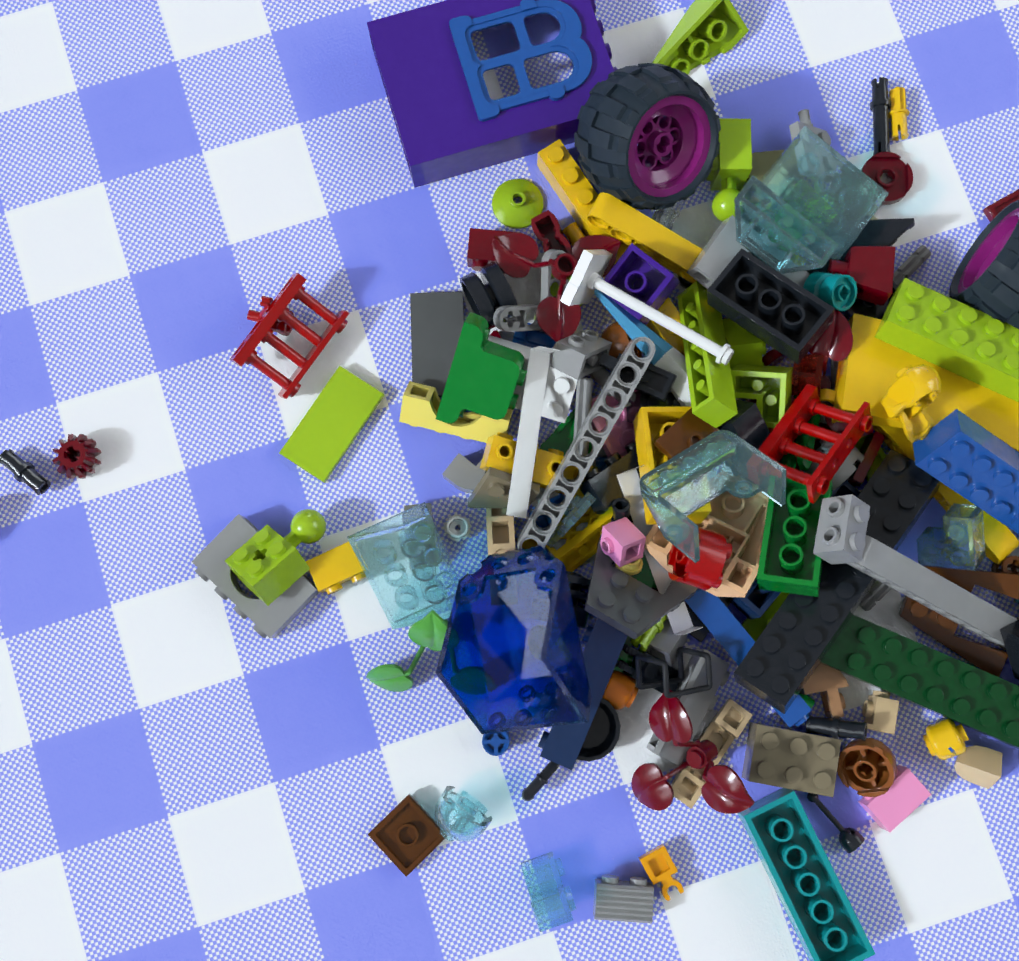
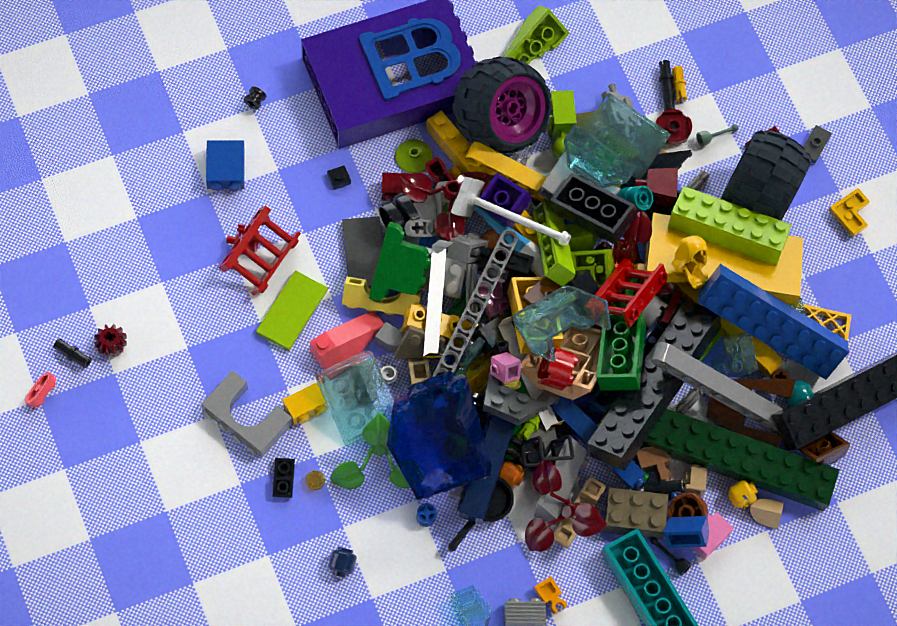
camera: 10 degrees left, 15 degrees down
(253, 204) = (225, 164): none -> blue brick
(272, 563) = (260, 398): lime brick -> none
(302, 107) = (255, 97): none -> black wheel
(302, 672) = (283, 477): none -> black slope
(345, 678) = (315, 480): none -> clear yellow plate
(373, 804) = (342, 561): none -> dark blue head
(402, 476) = (345, 340): none -> coral wedge
(407, 835) = (368, 581): reddish brown plate -> none
(411, 230) = (339, 177): none -> black plate
(460, 816) = (405, 563): clear light blue cylinder -> none
(842, 529) = (648, 340): light grey brick -> none
(865, 800) = (687, 532): none -> blue brick
(929, 196) = (704, 137): none -> sand green hinge

